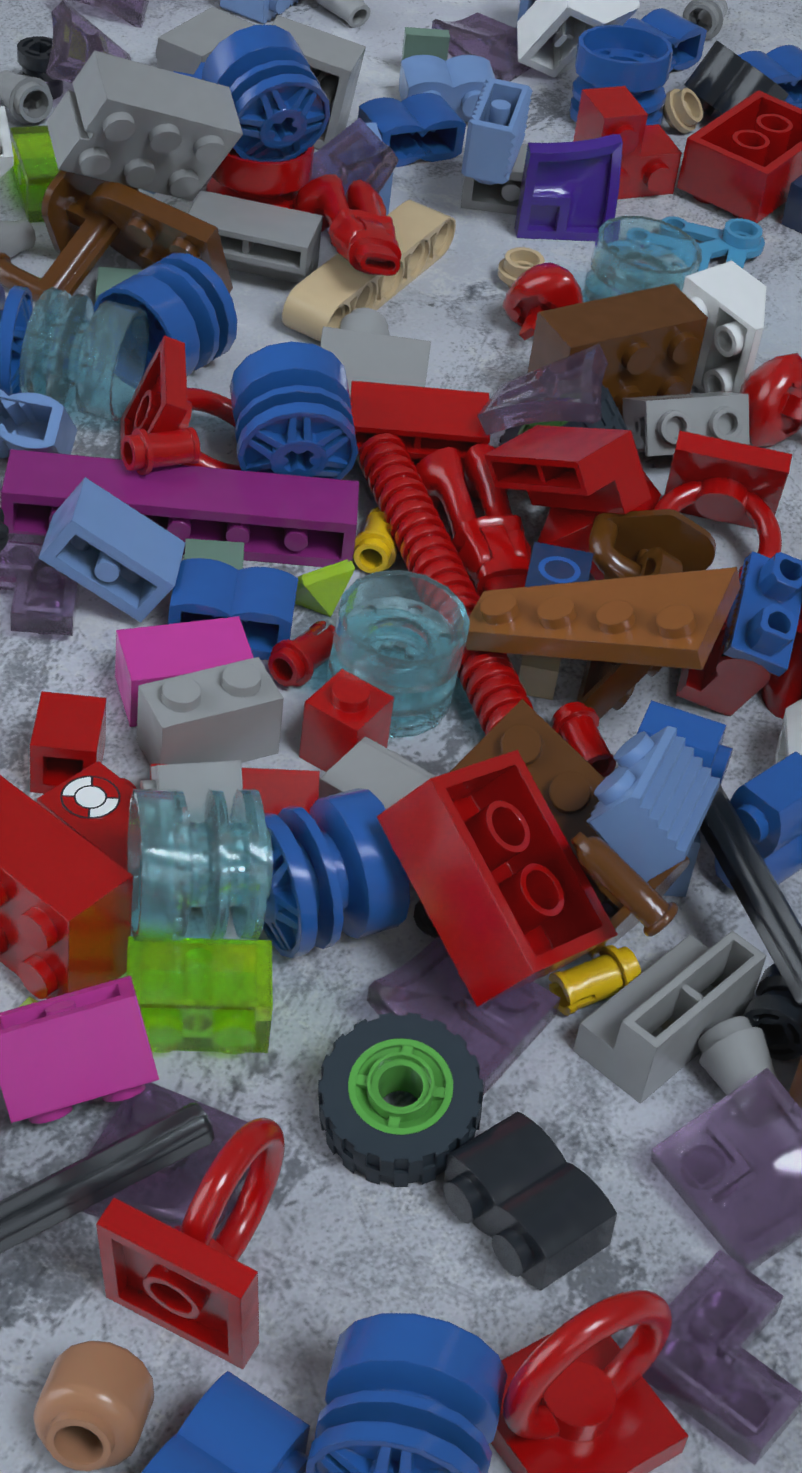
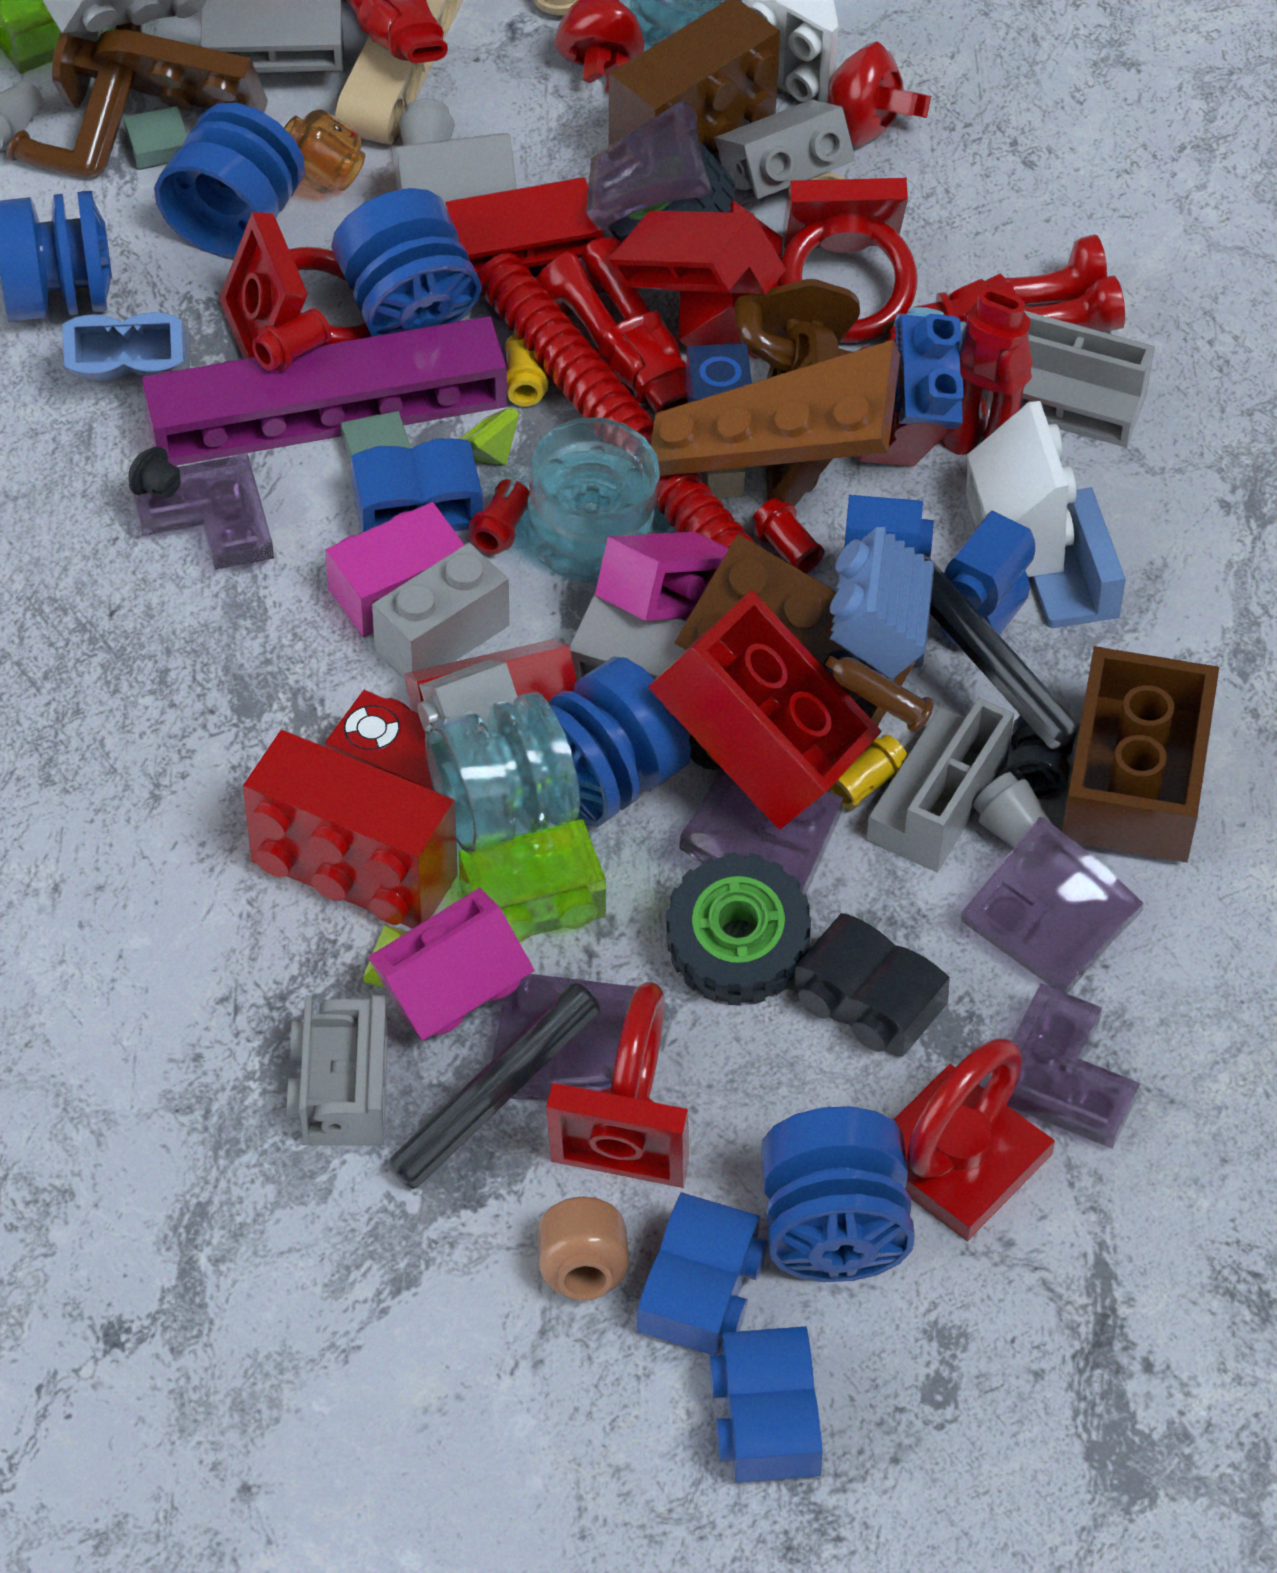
camera: 10 degrees left, 10 degrees up
(65, 738) = (321, 674): red brick -> none
(84, 353) = (166, 243): clear light blue wheel -> none
(112, 550) = (287, 464): medium blue brick -> none
(262, 321) = (329, 150): none -> clear orange head
(341, 717) = (563, 583): red brick -> none
(428, 728) = (658, 573): none -> dark pink brick

